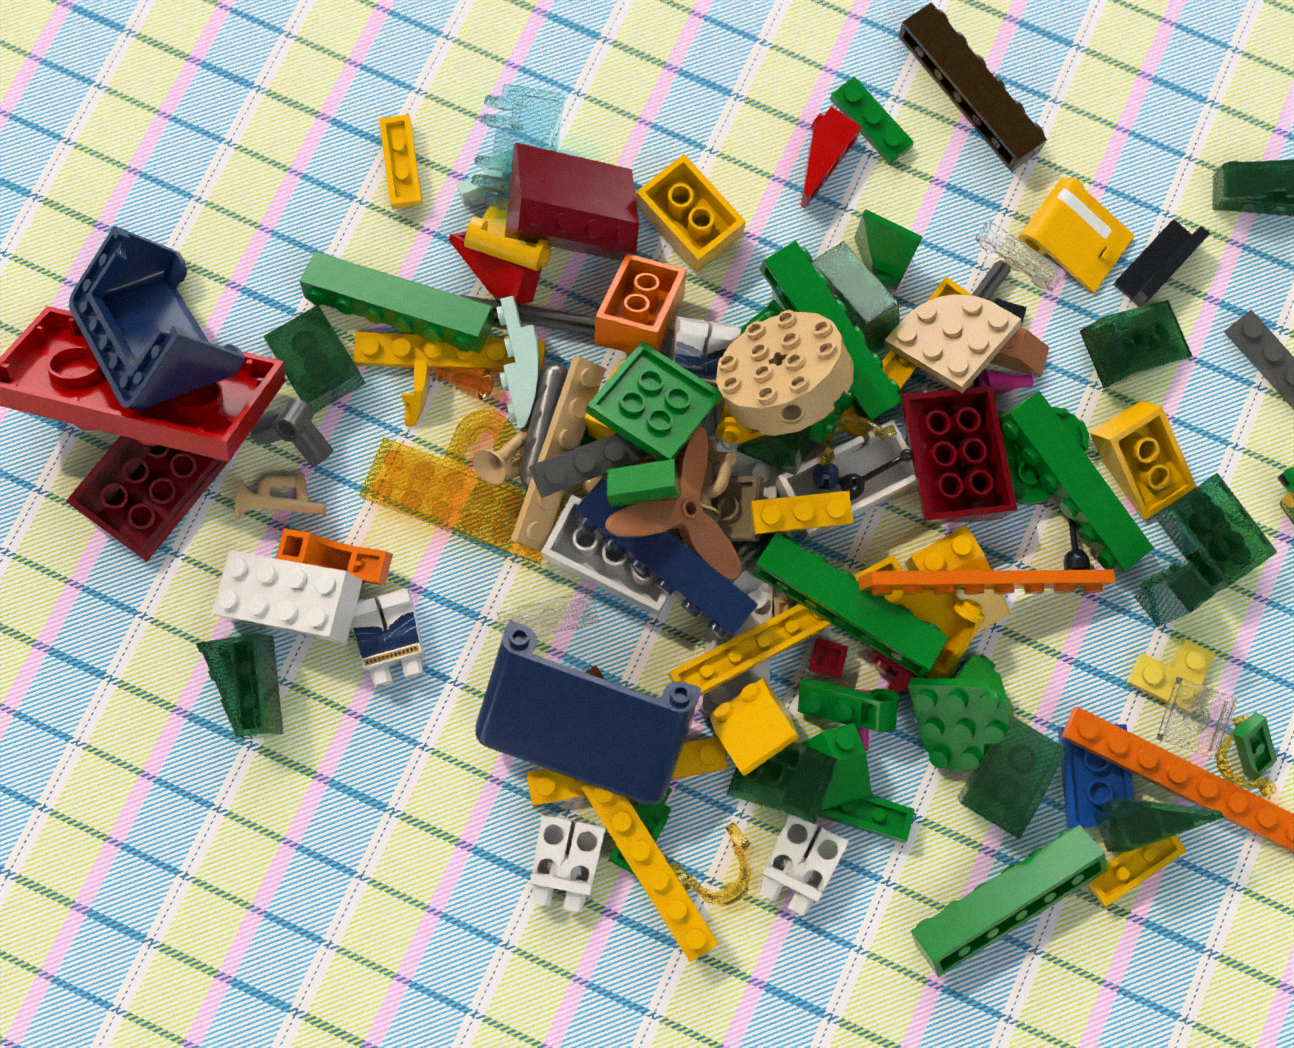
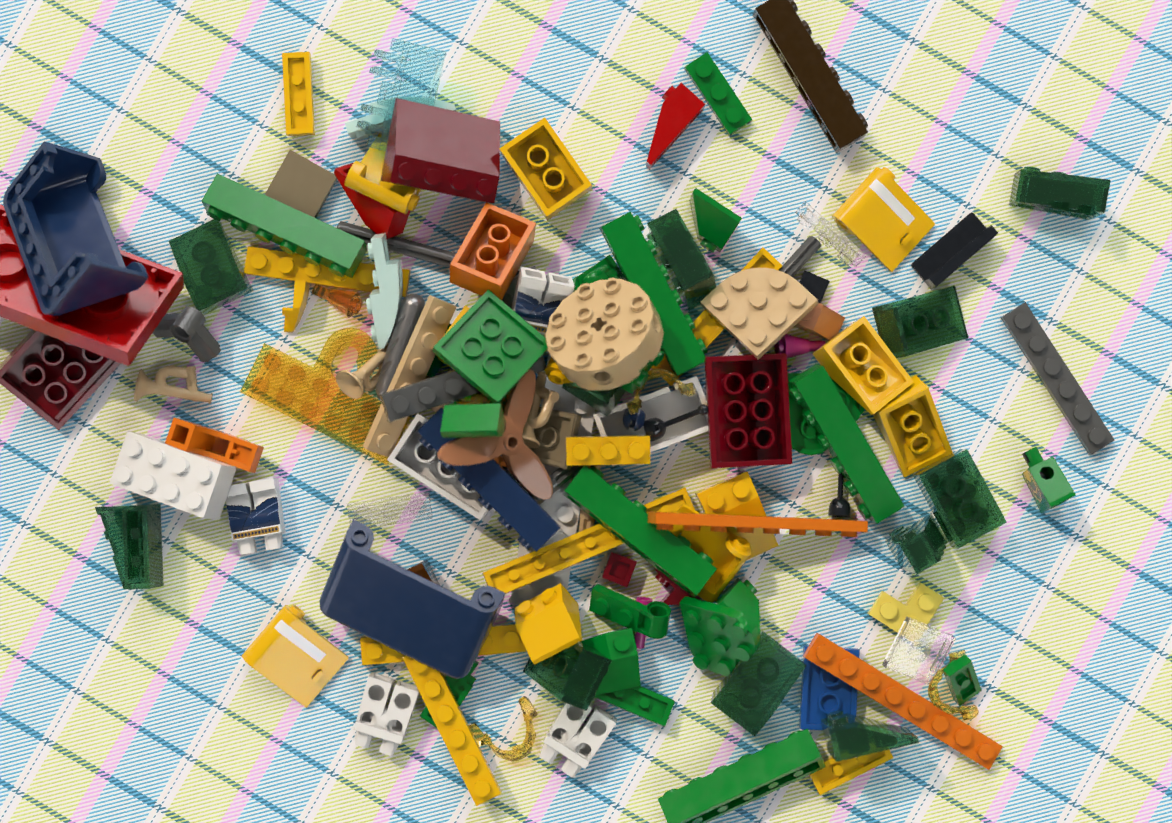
camera: 10 degrees right, 10 degrees up
(414, 256) = (301, 184): none -> dark tan tile
(446, 799) = (291, 653): none -> yellow door
(1083, 391) = (863, 366): none -> yellow slope

